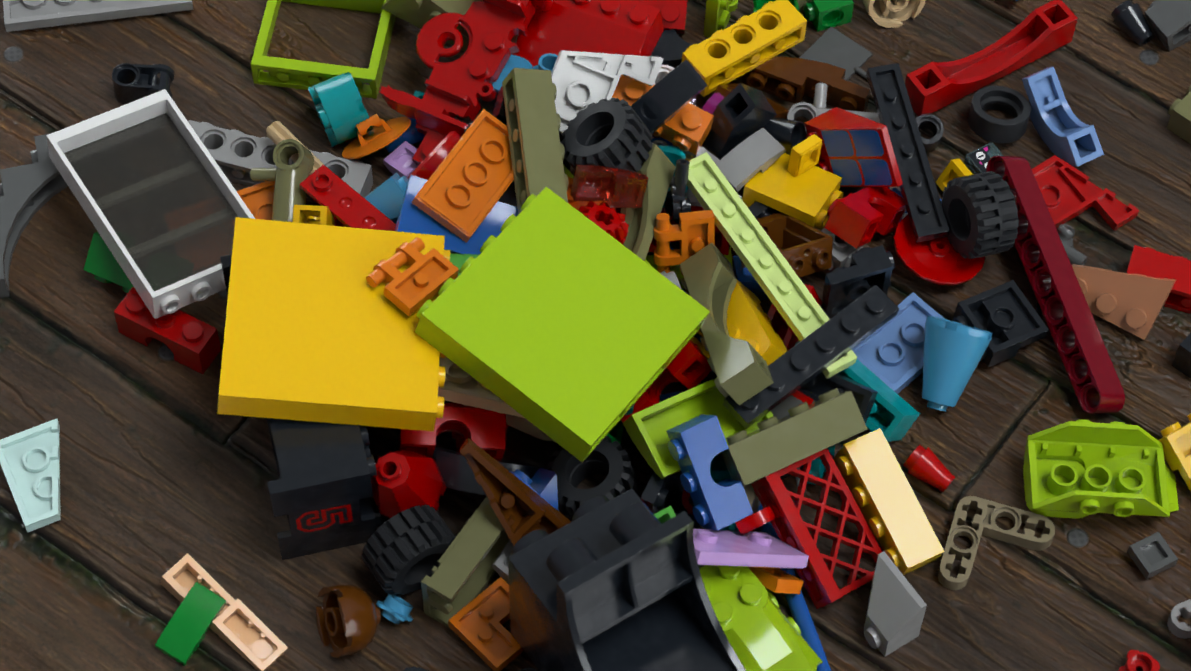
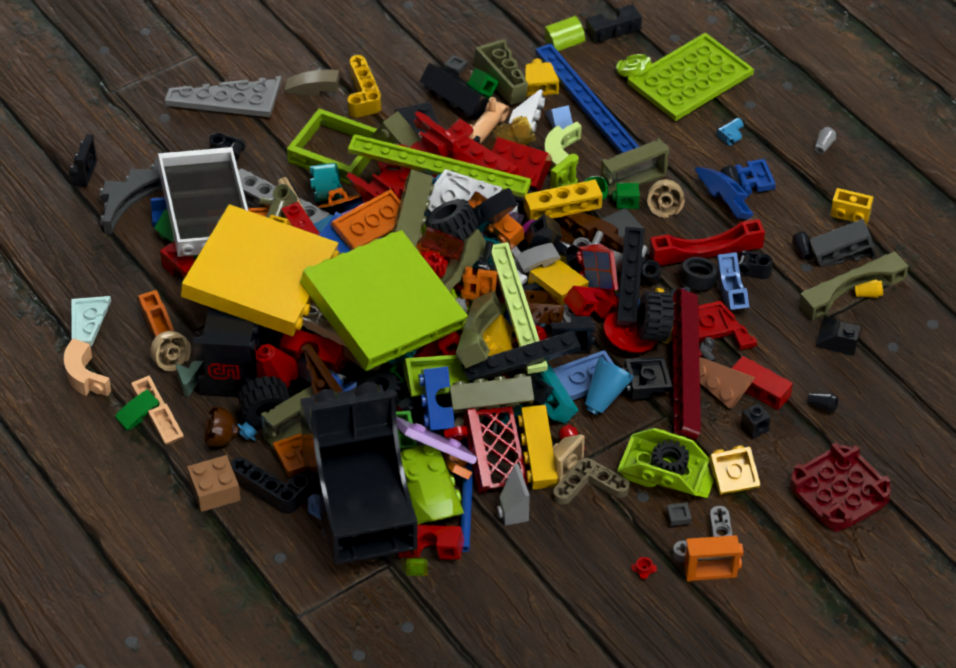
camera: 20 degrees right, 10 degrees down
(70, 593) = (75, 360): none -> light nougat arch
(77, 233) = (158, 205): none -> blue panel
(153, 435) = (155, 313): none -> orange slope
(204, 494) = (170, 349): none -> tan cylinder
(254, 535) = (189, 376): none -> sand green slope
(418, 282) = (315, 255): orange plate -> none
(529, 38) = (435, 164): none -> lime plate
(804, 155) = (570, 263): yellow tile -> none
(939, 497) = (568, 453): none -> tan slope
(1079, 74) = (755, 265): none -> black piece
(1116, 451) = (672, 450): none -> black tyre

